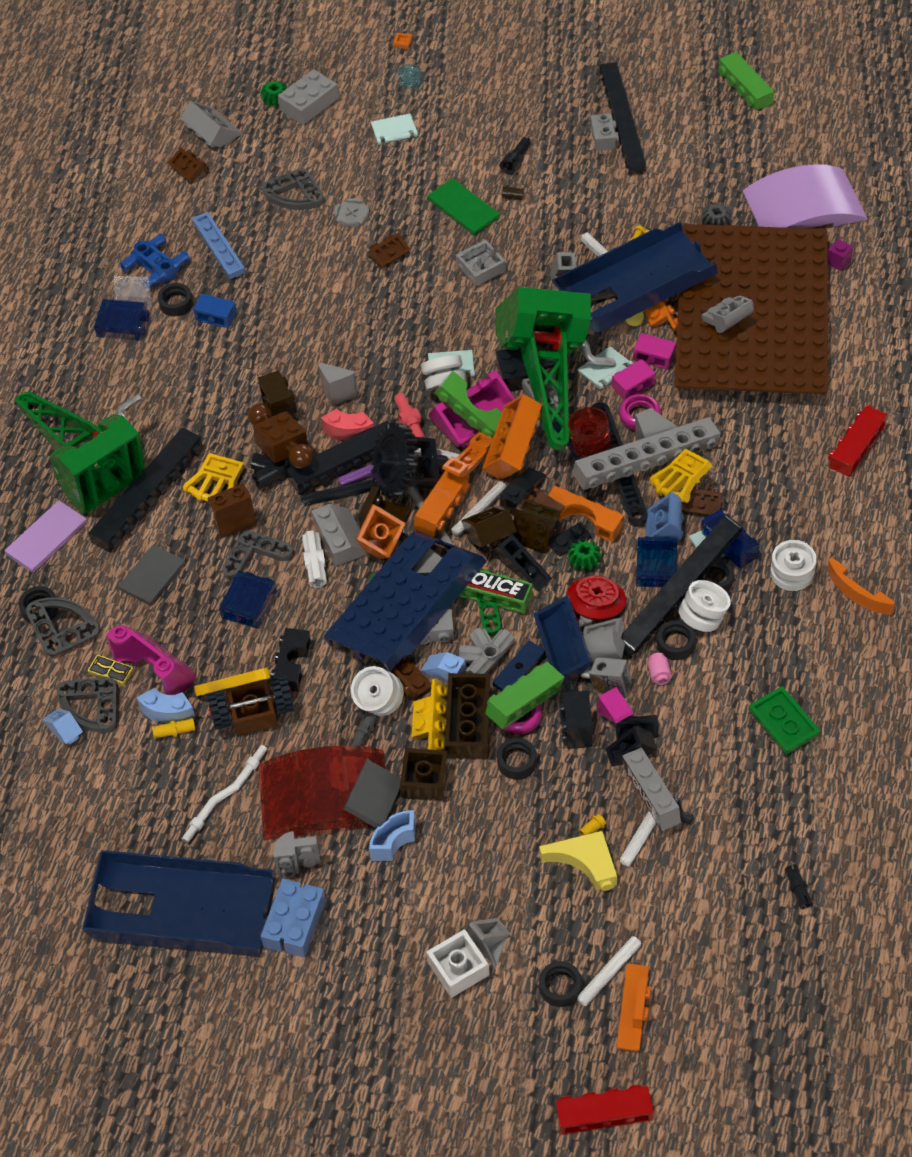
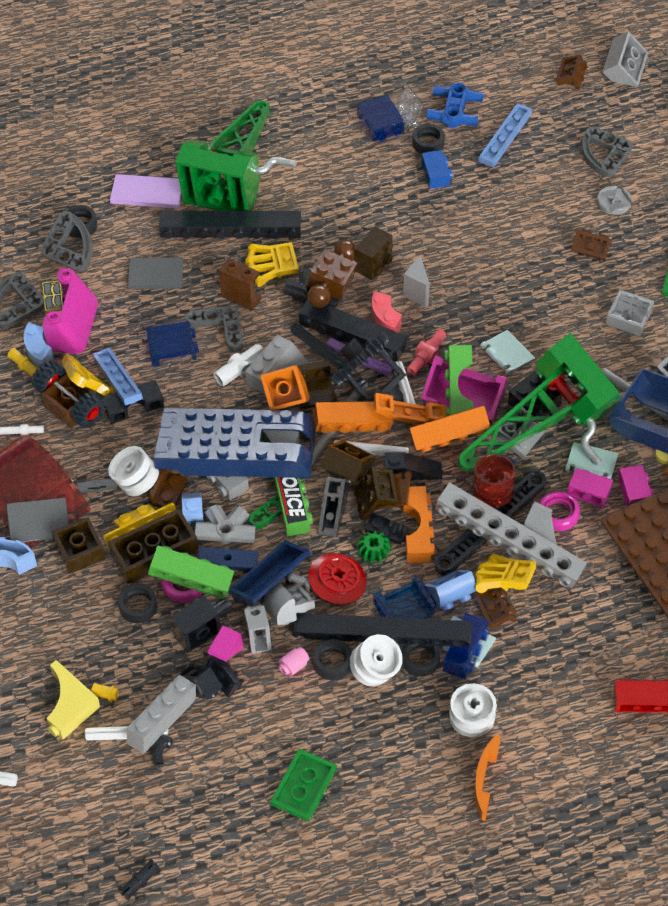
camera: 55 degrees right, 0 degrees up
(258, 655) = (117, 376): none -> medium blue plate
(440, 369) = (484, 344): white wheel -> none

